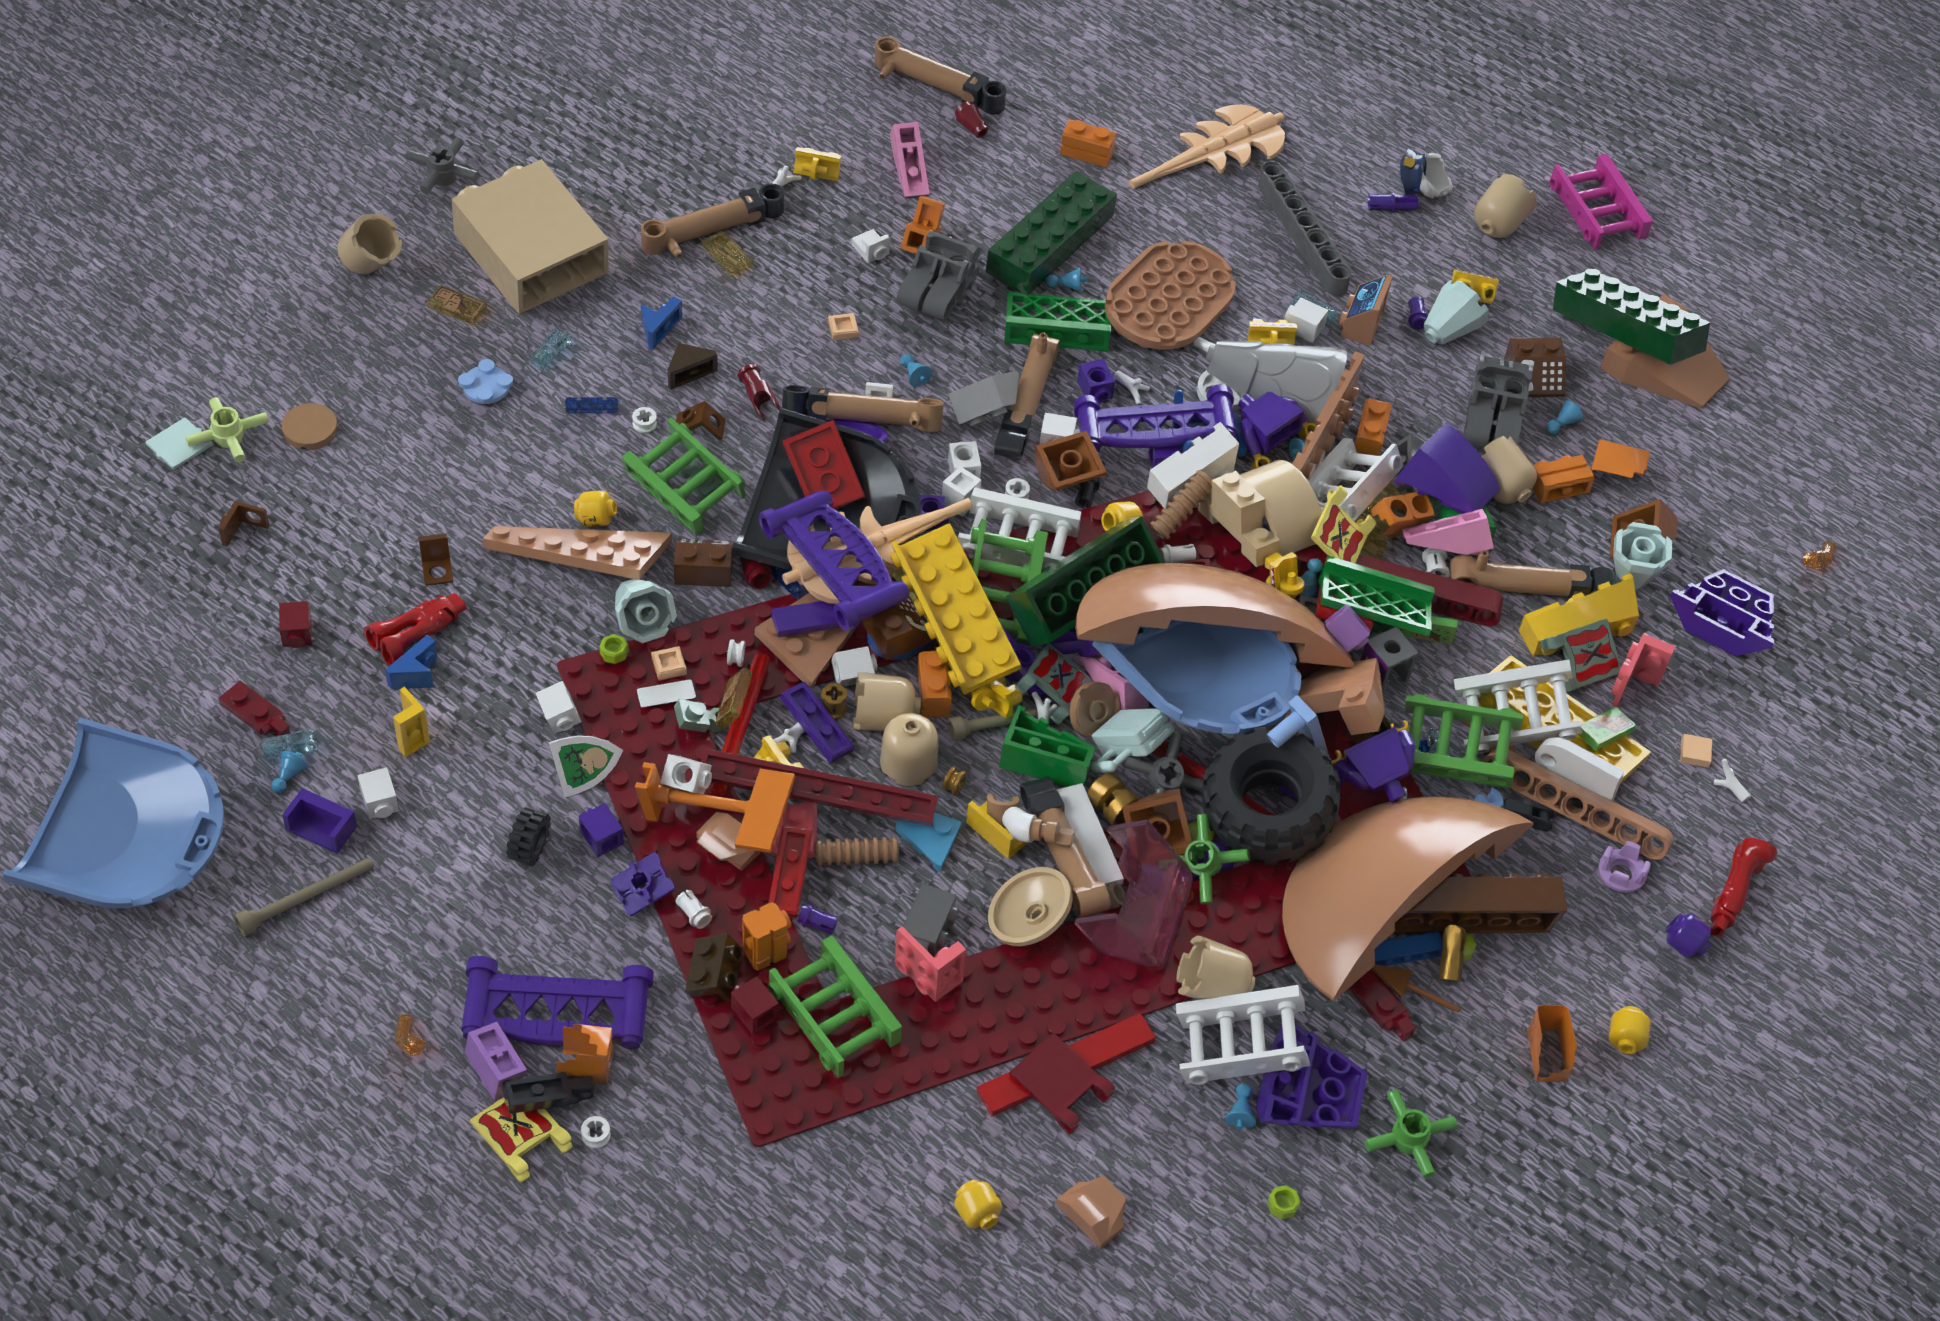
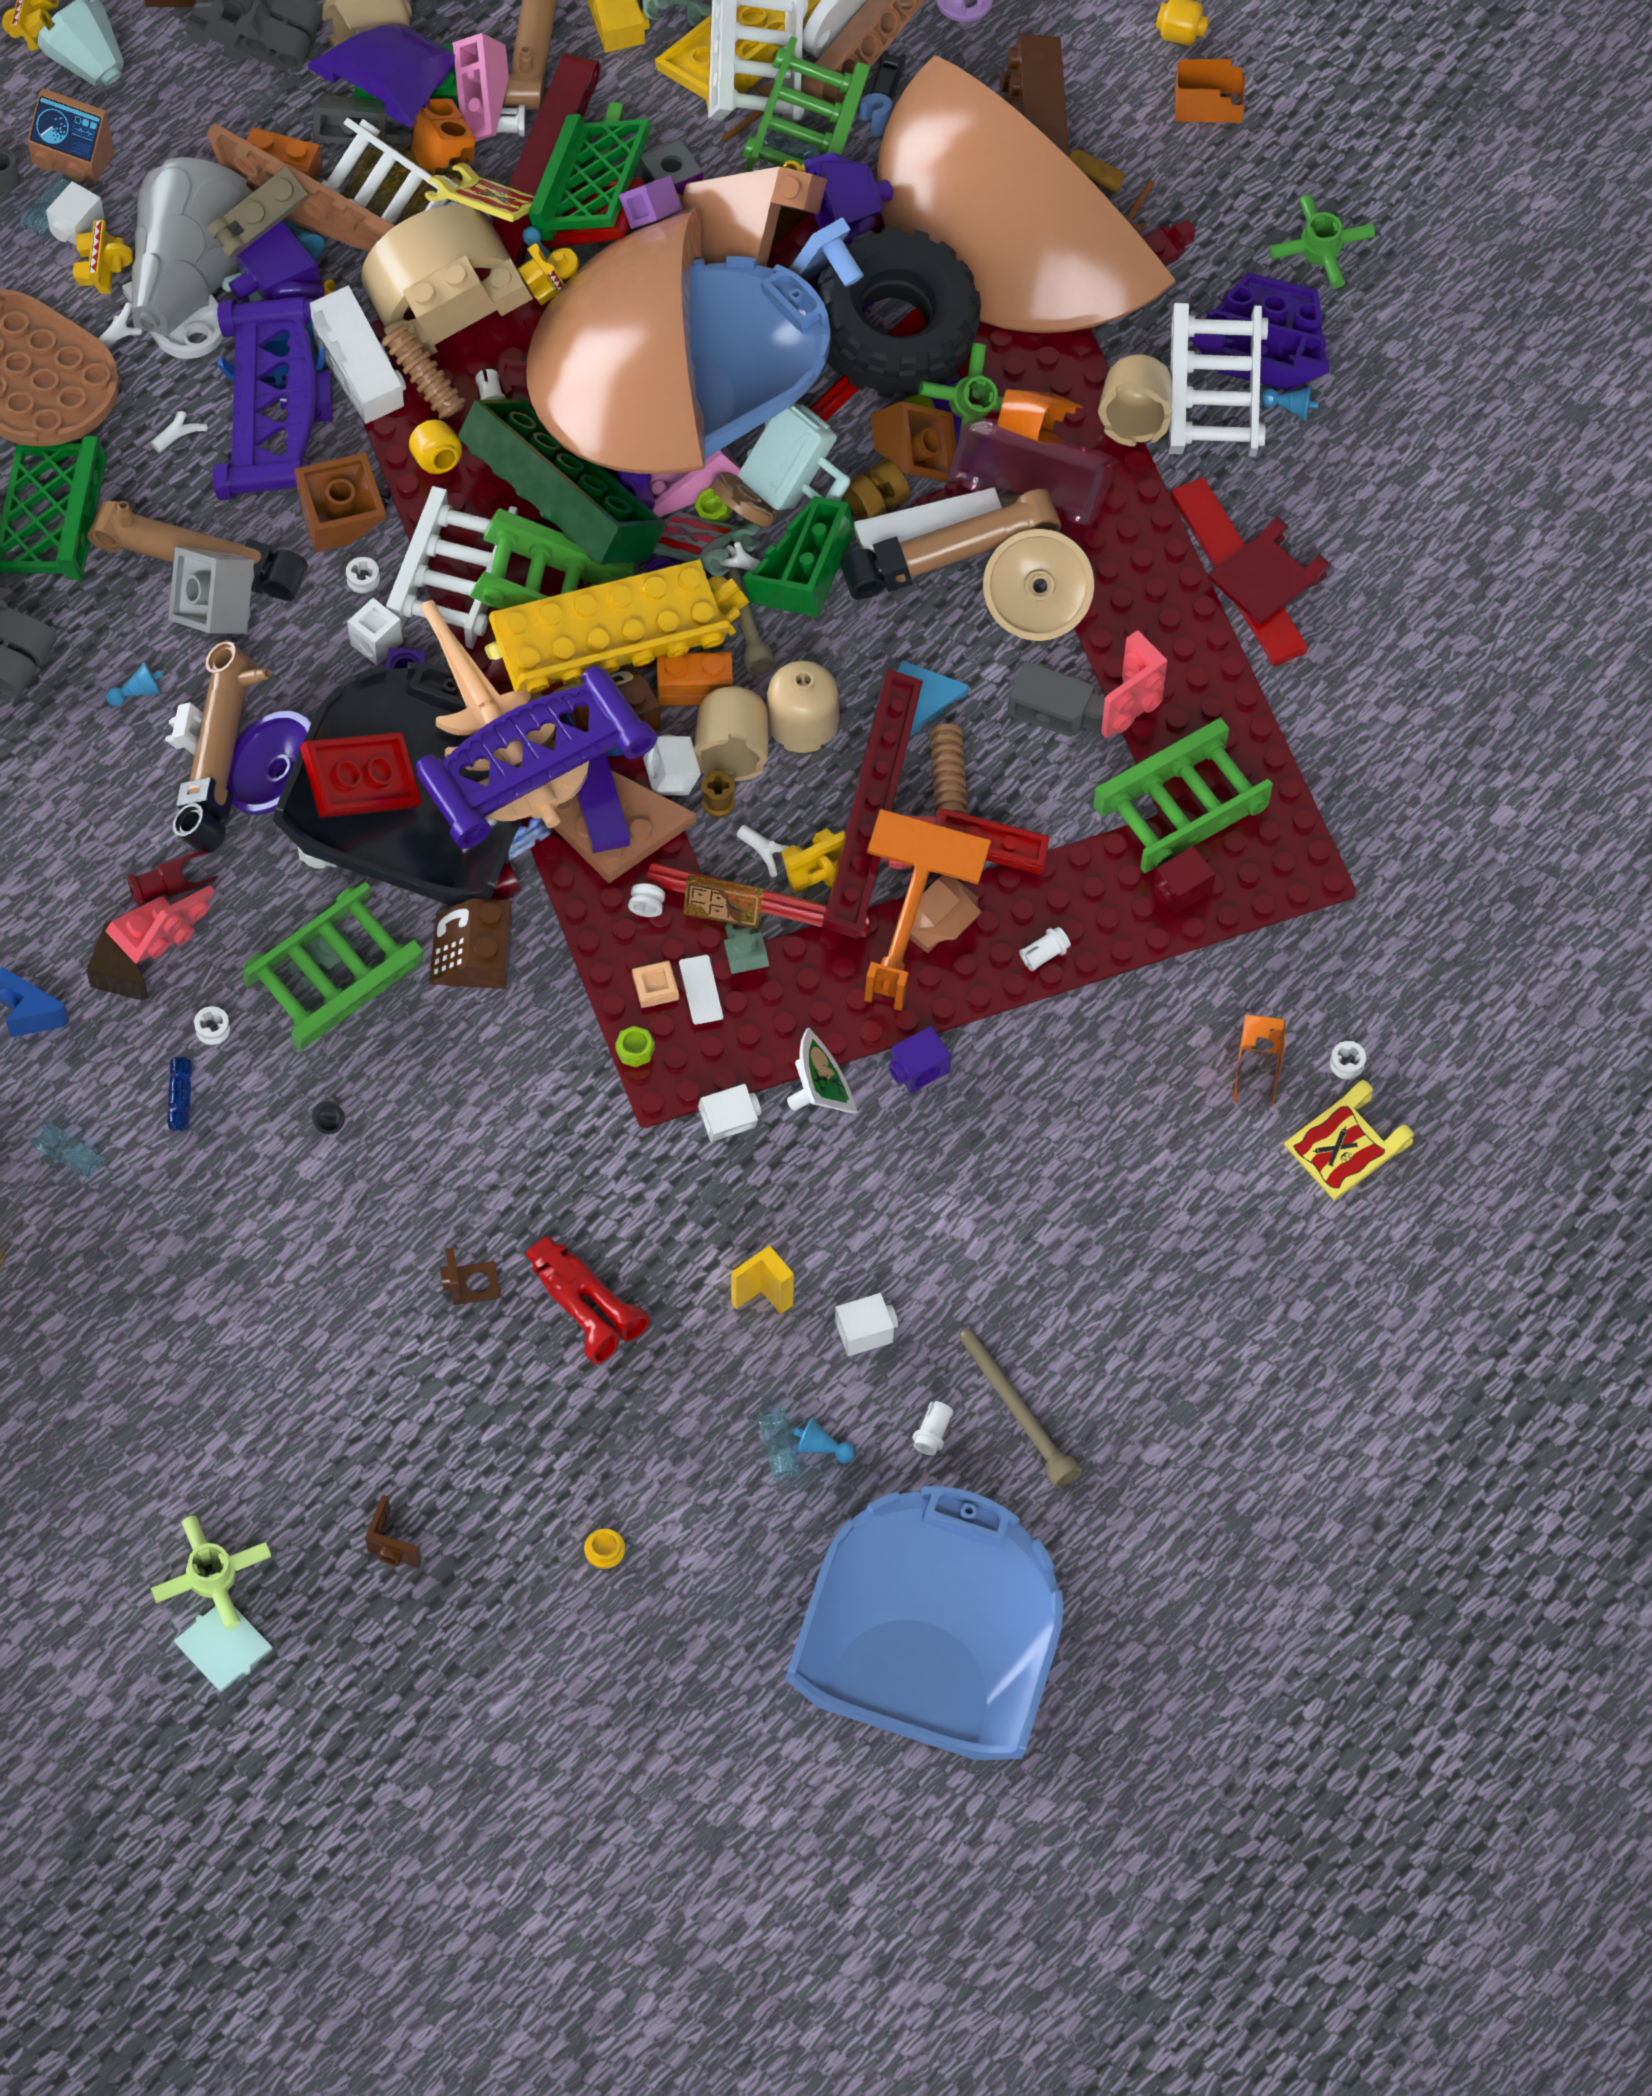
camera: 85 degrees left, 10 degrees up
(219, 643) = (604, 1548): none -> yellow plate
(254, 710) = (720, 1493): dark red hinge -> none
(291, 839) = (929, 1437): none -> white pin
(295, 624) = (580, 1448): dark red brick -> none
(309, 426) = (201, 1466): medium nougat tile -> none
(319, 820) = (908, 1391): dark purple panel -> none
(405, 1039) = (1228, 1273): clear orange arm -> none
(412, 667) = (656, 1299): blue slope -> none
(485, 383) = (132, 1231): light blue piece -> none
(489, 990) = (1158, 1178): dark purple piece -> none
(493, 1058) = (1261, 1167): medium lavender hinge -> none
(528, 836) = (941, 1135): black tyre -> none
(545, 1092) = (1305, 1110): black hinge -> none
(567, 481) = (328, 1124): none -> black hinge
(595, 509) = (383, 1079): yellow head -> none
(603, 551) = (458, 1072): nougat wing -> none
(629, 880) = (1026, 1015): dark purple piece -> none
(644, 610) = (568, 1012): light aqua cone -> none
(675, 774) = (857, 942): white brick -> none
(700, 416) = (220, 958): reddish brown bracket -> none
(712, 377) = (159, 925): none -> coral bracket
(714, 966) = (1129, 927): dark brown bracket -> none
(765, 935) = (1099, 858): orange brick -> none
(817, 722) = (750, 814): dark purple tile -> none
(817, 919) = (1049, 817): dark purple pin -> none
(843, 326) = (43, 775): light nougat tile -> none
(954, 781) = (842, 664): pearl gold bush -> none
(964, 455) = (319, 618): white brick -> none
(978, 1204) = (1428, 665): yellow head -> none
(992, 830) = (911, 623): yellow panel -> none
(1026, 826) = (931, 581): medium nougat piece -> none
(1057, 427) = (268, 517): white brick -> none
(1095, 1209) = (1425, 553): nougat slope -> none
(1096, 380) = (170, 455): dark purple brick -> none
(1152, 770) = (849, 428): dark grey bar -> none
(1182, 897) = (1032, 411): none -> orange piece
(1283, 1202) = (1409, 372): lime tile -> none
(1297, 391) = (259, 212): none -> dark tan plate
(1417, 312) = (75, 88): dark purple pin -> none

